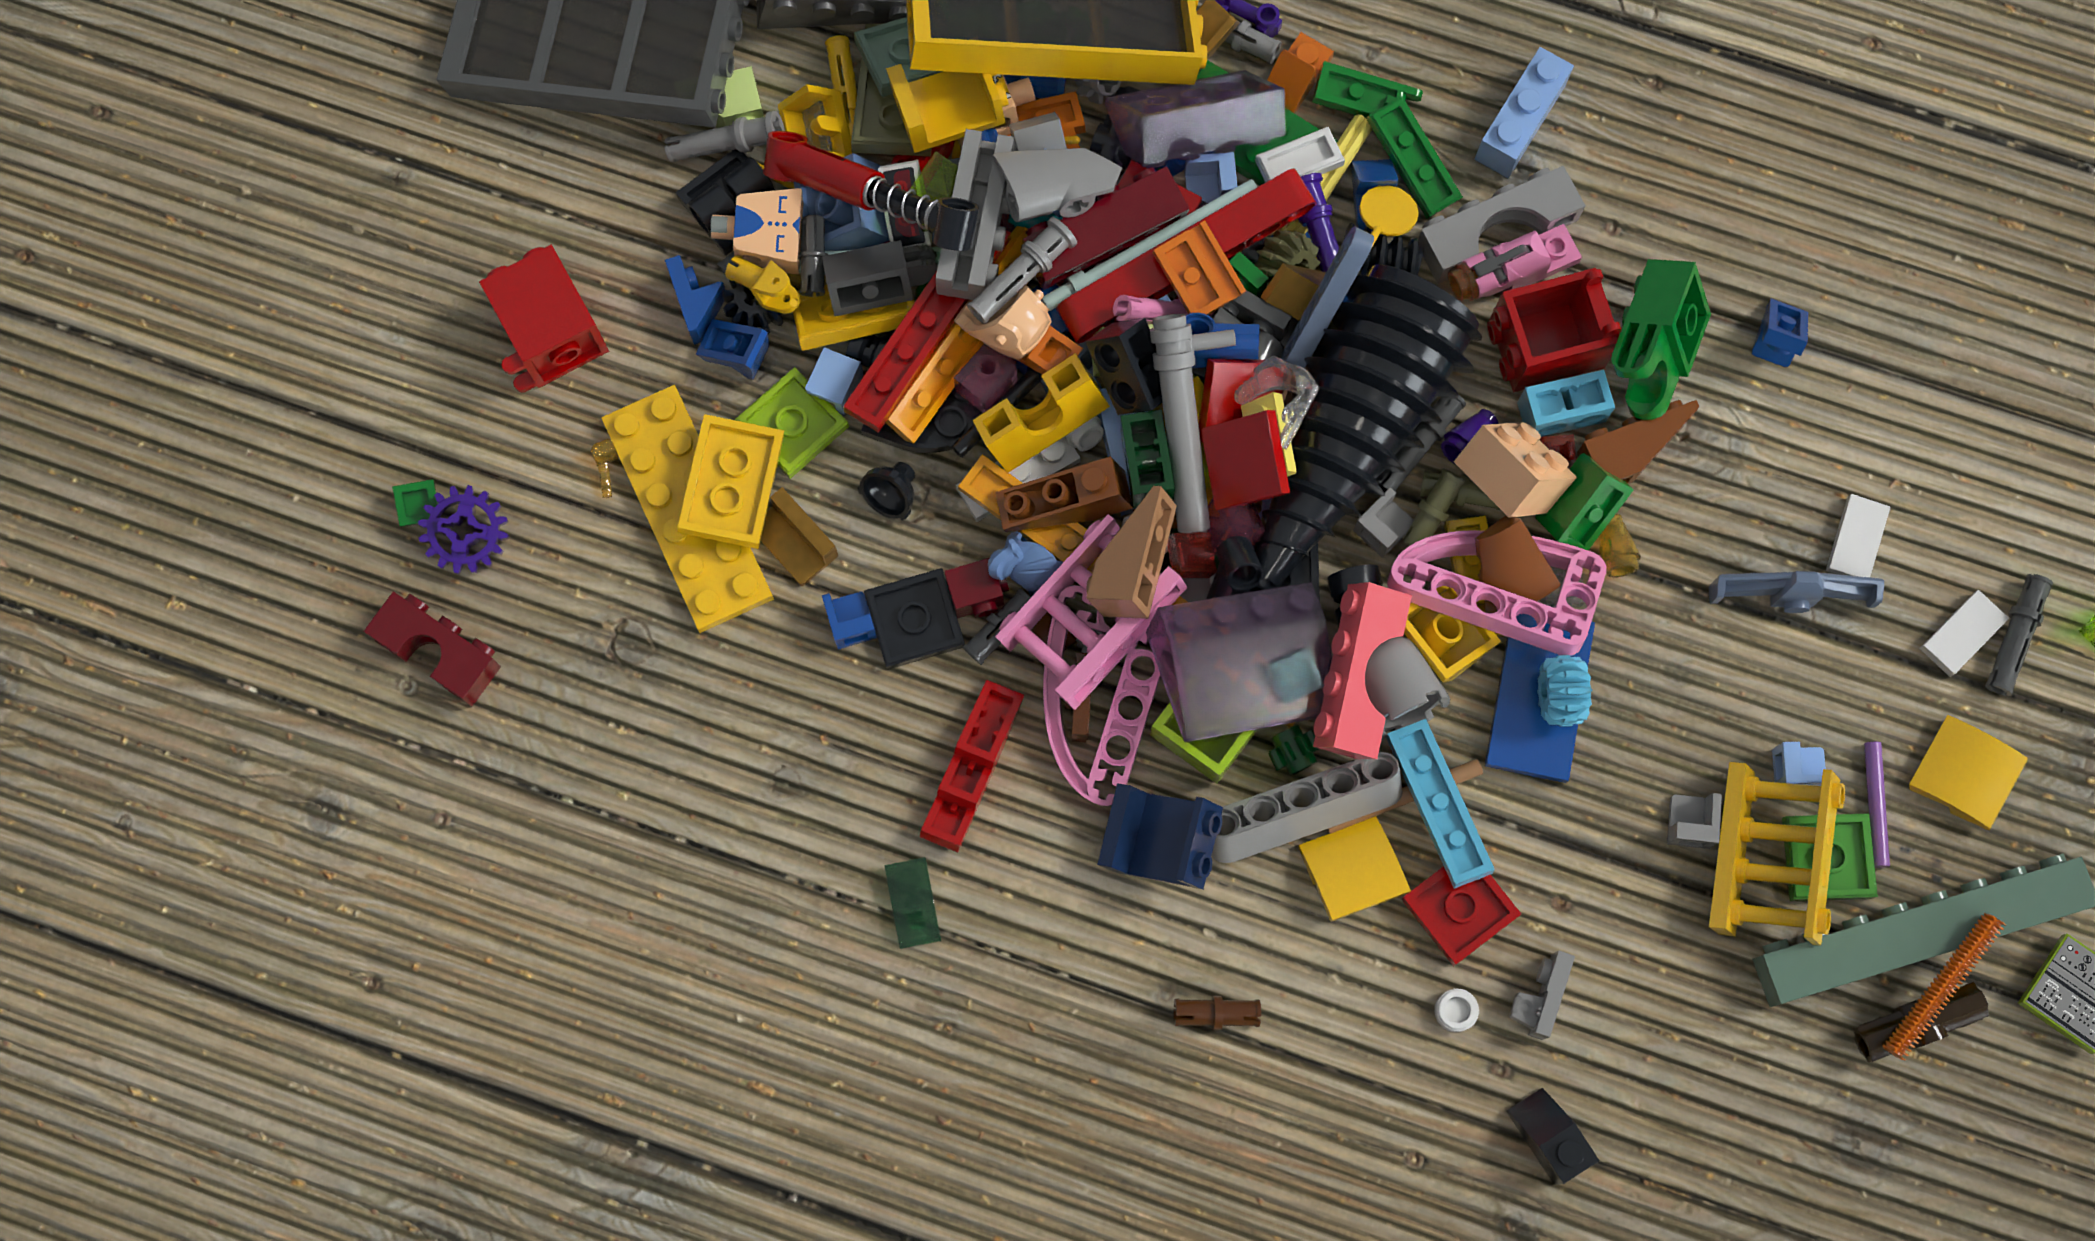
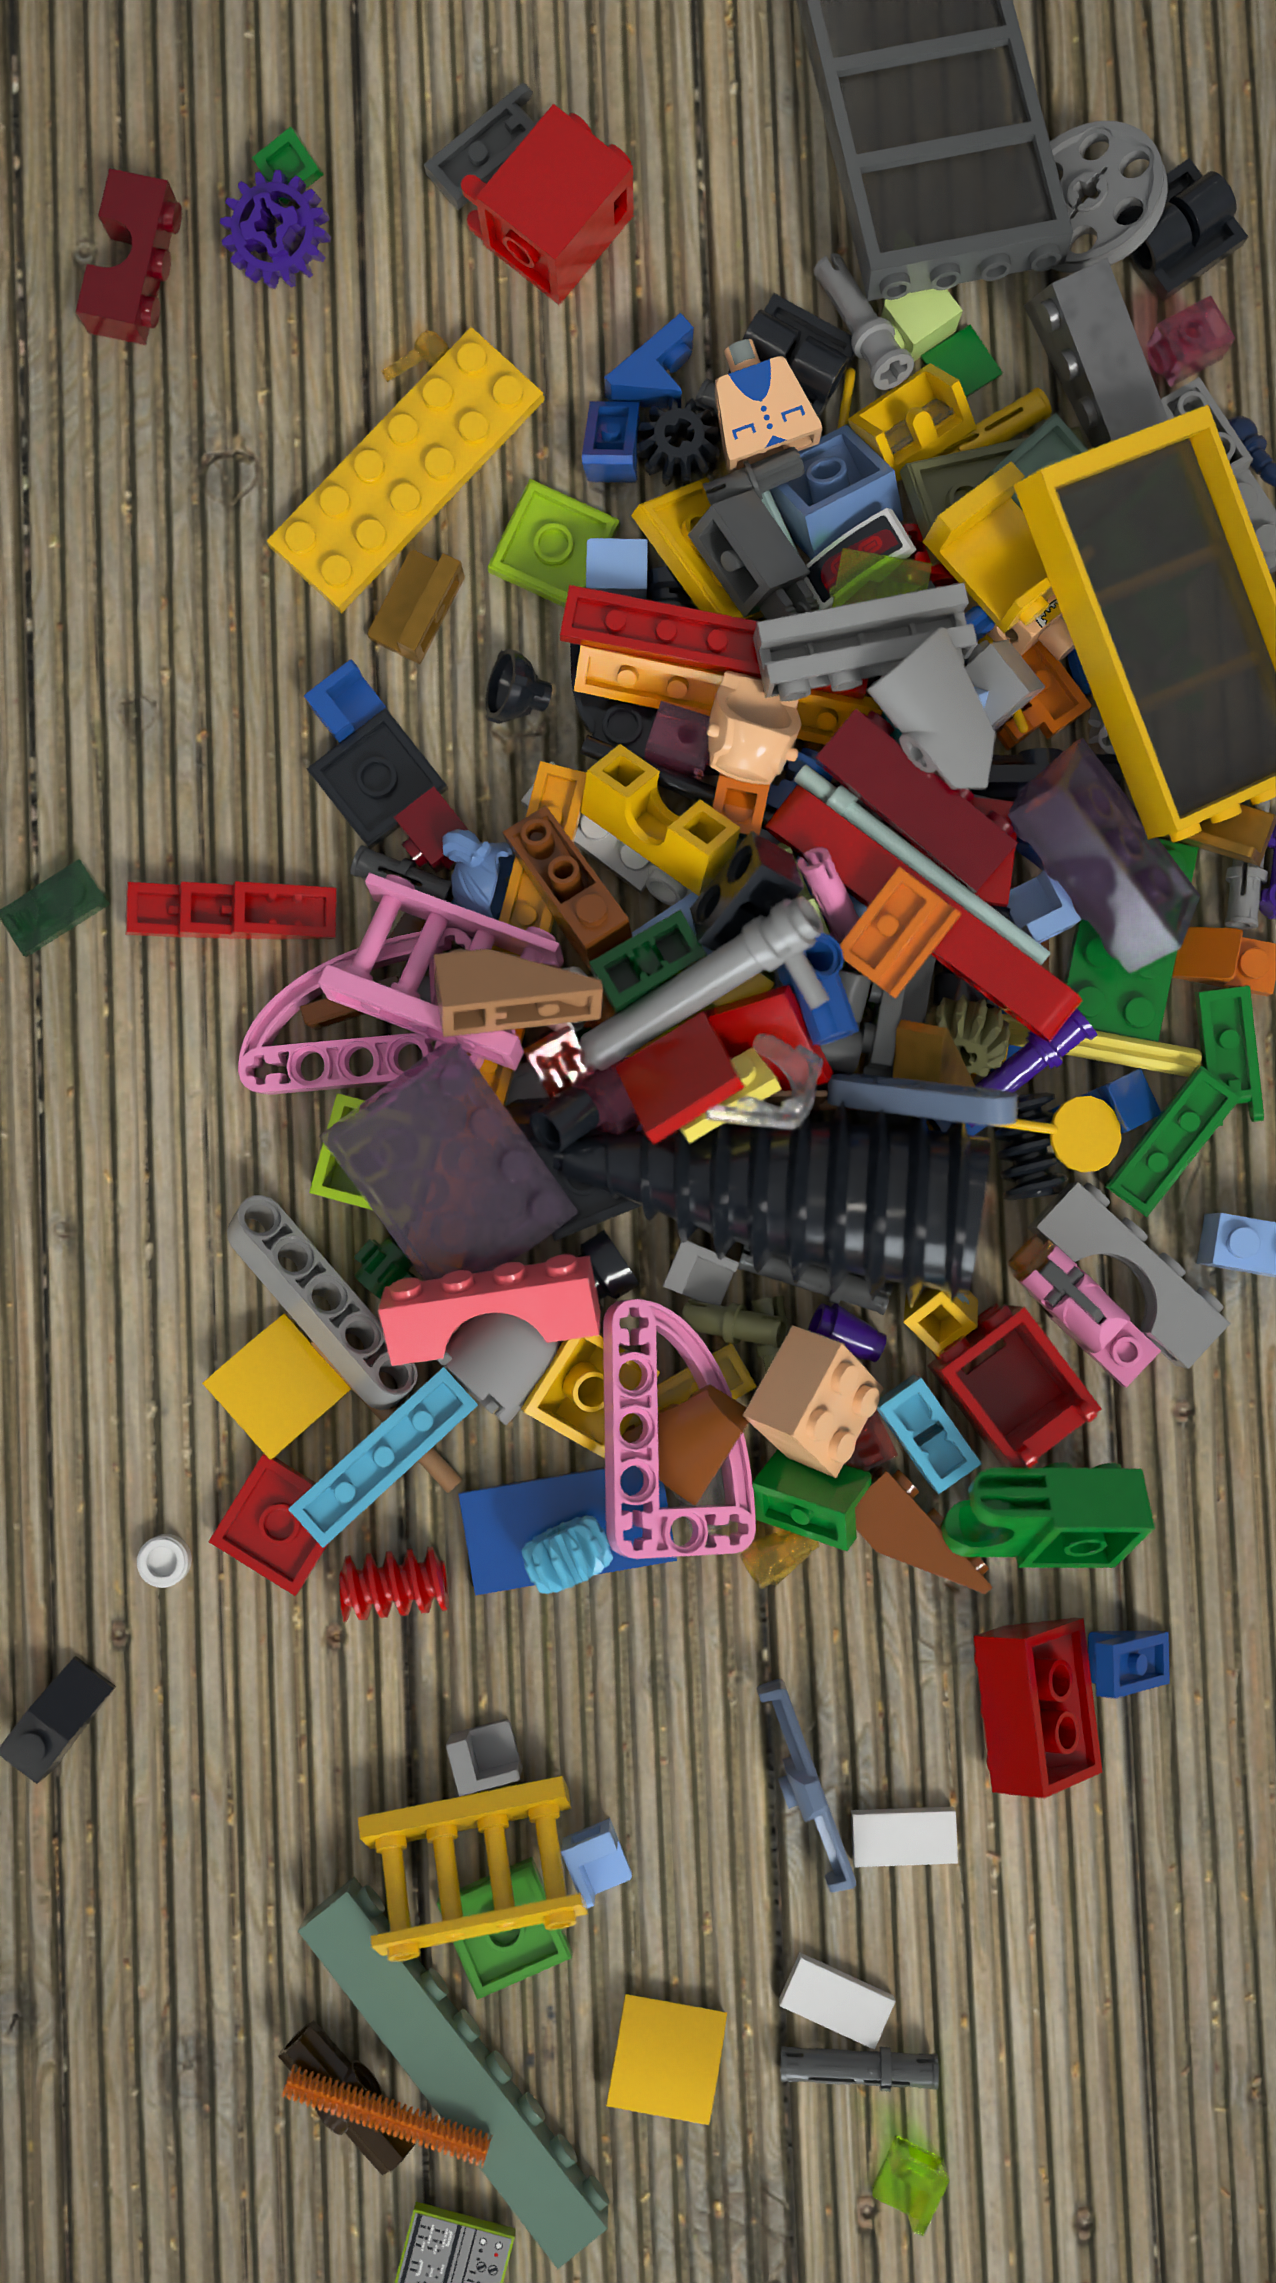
camera: 70 degrees right, 10 degrees up
(471, 355) = (482, 146): none -> dark grey hinge
(730, 481) = (444, 500): yellow plate -> none
(768, 284) = (691, 437): yellow piece -> none
(779, 83) = (965, 359): none -> green piece
(794, 160) = (855, 407): piece -> none
(1035, 258) = (832, 731): light grey pin -> none
(1160, 837) = (220, 1152): dark blue panel -> none
(1217, 1012) = (55, 1292): reddish brown pin -> none
(1250, 276) = (923, 993): green plate -> none
(1295, 675) = (451, 1235): clear light blue tile -> none
(1307, 154) = (1112, 1005): white tile -> none
(1488, 360) = (939, 1320): none -> yellow brick
(1536, 836) = (393, 1584): none -> red piece
(1541, 1011) = (192, 1655): light grey hinge -> none
(1794, 407) = (1037, 1707): none -> red slope
(1877, 803) = (589, 1963): medium lavender bar -> none

